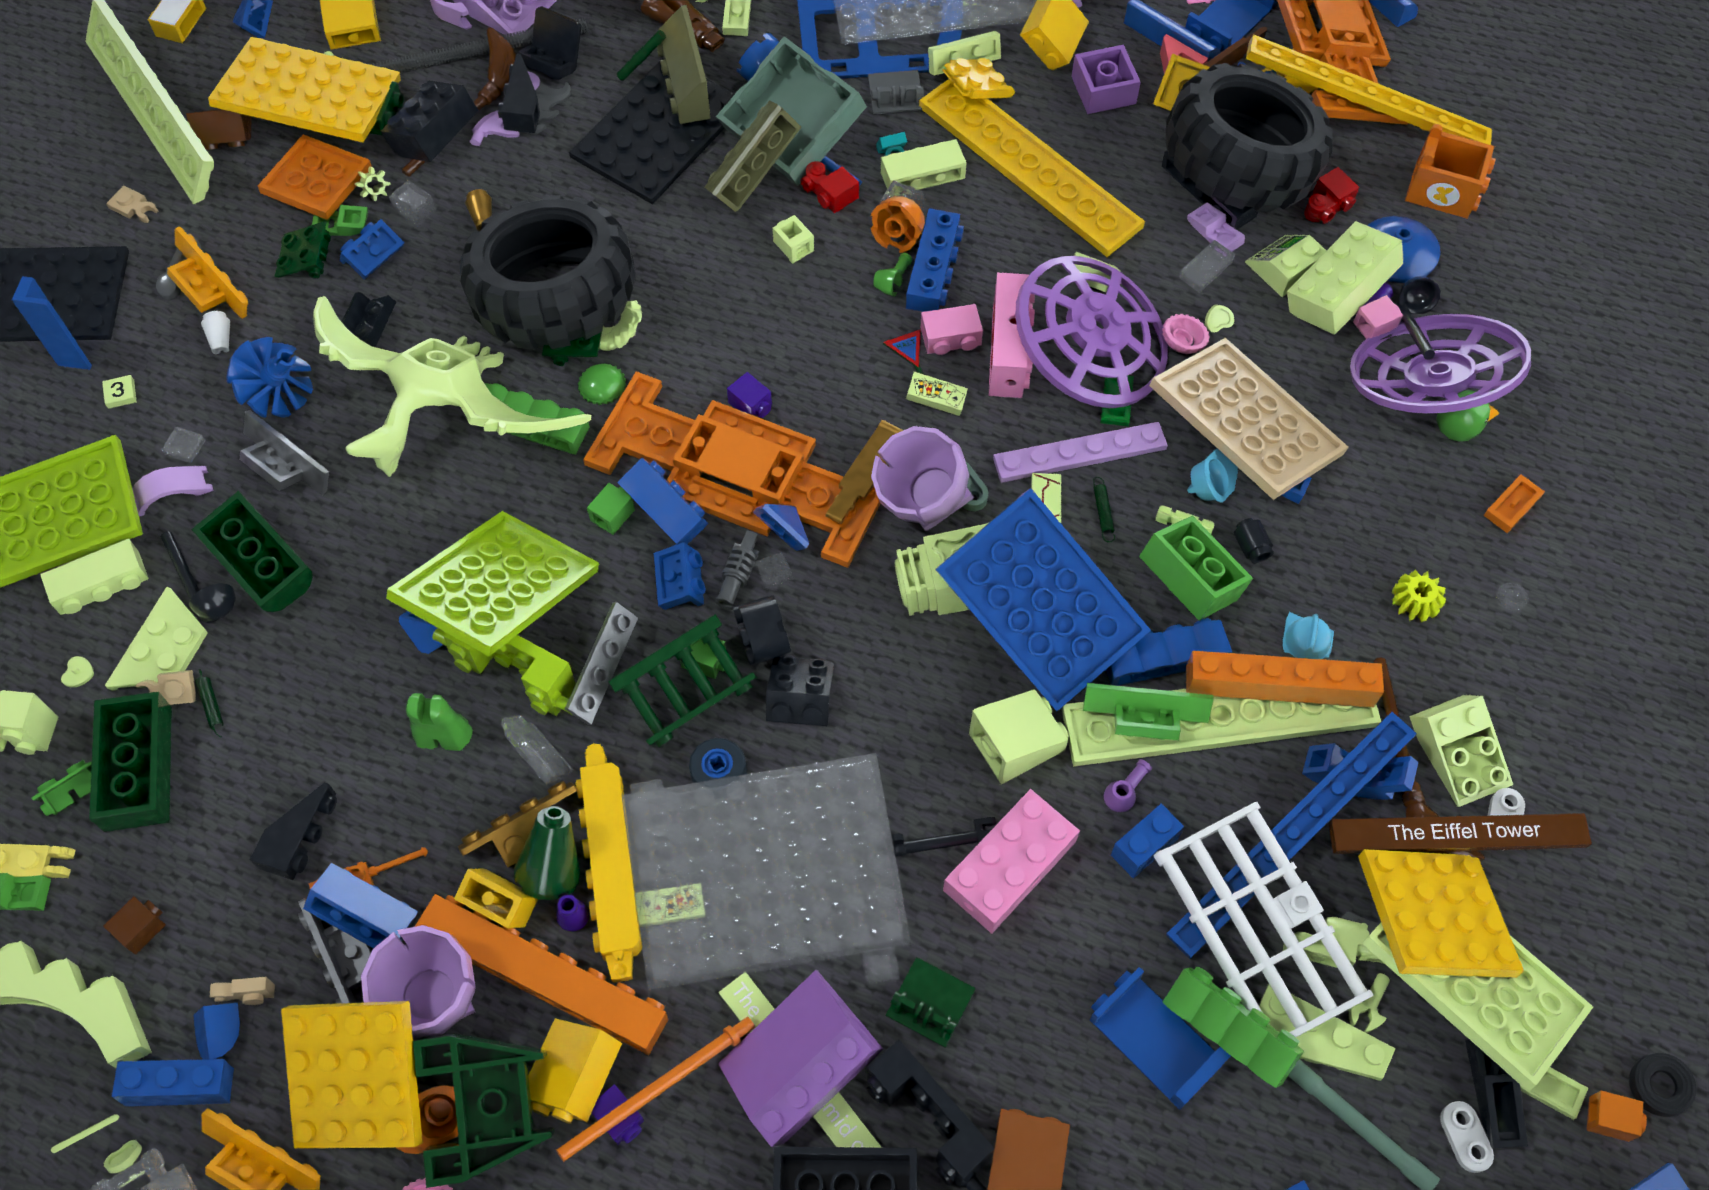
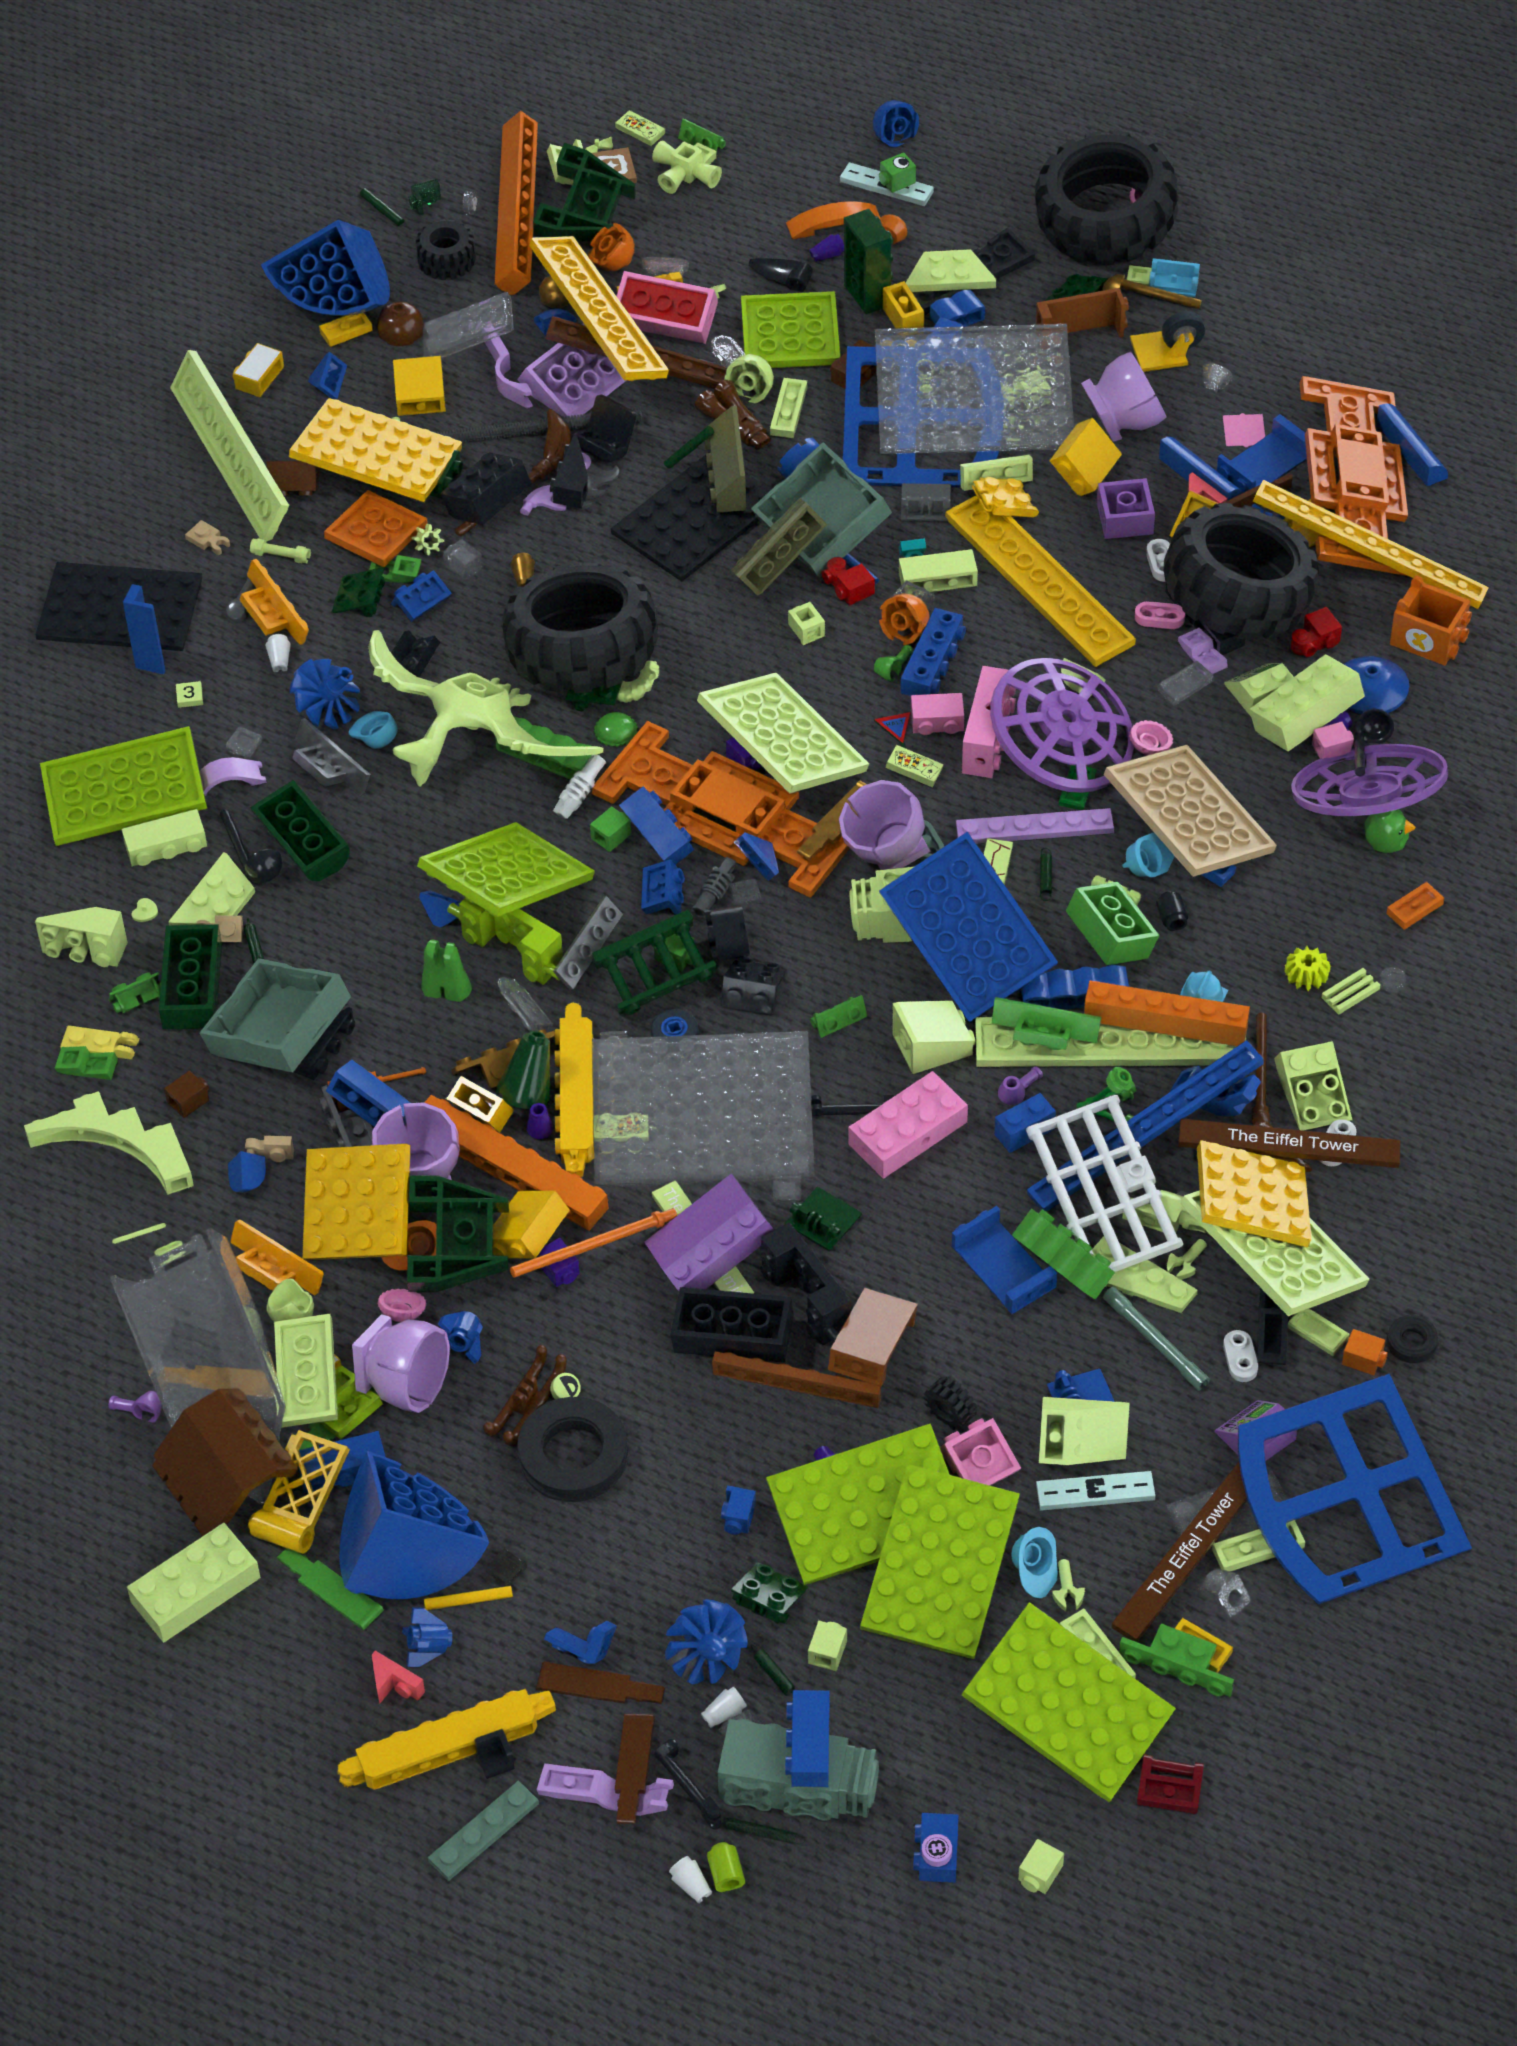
camera: 10 degrees right, 10 degrees down
(173, 1082) = (212, 1201): blue brick -> none
(190, 209) = (259, 547): none -> yellowish green bar
(235, 808) = (275, 1015): none -> sand green tile
(331, 413) = (375, 729): none -> medium azure cap
(568, 462) = (579, 787): none -> white hinge
(788, 372) = (783, 732): none -> yellowish green plate
(914, 712) = (839, 1016): none -> bright green hinge
(1153, 133) = (1157, 561): none -> white plate
(1162, 192) = (1160, 615): none -> bright pink plate
(1218, 318) = (1185, 728): yellowish green piece -> none
(1251, 783) = (1120, 1084): none -> bright green plant
(1484, 602) = (1366, 980): none -> yellowish green tile

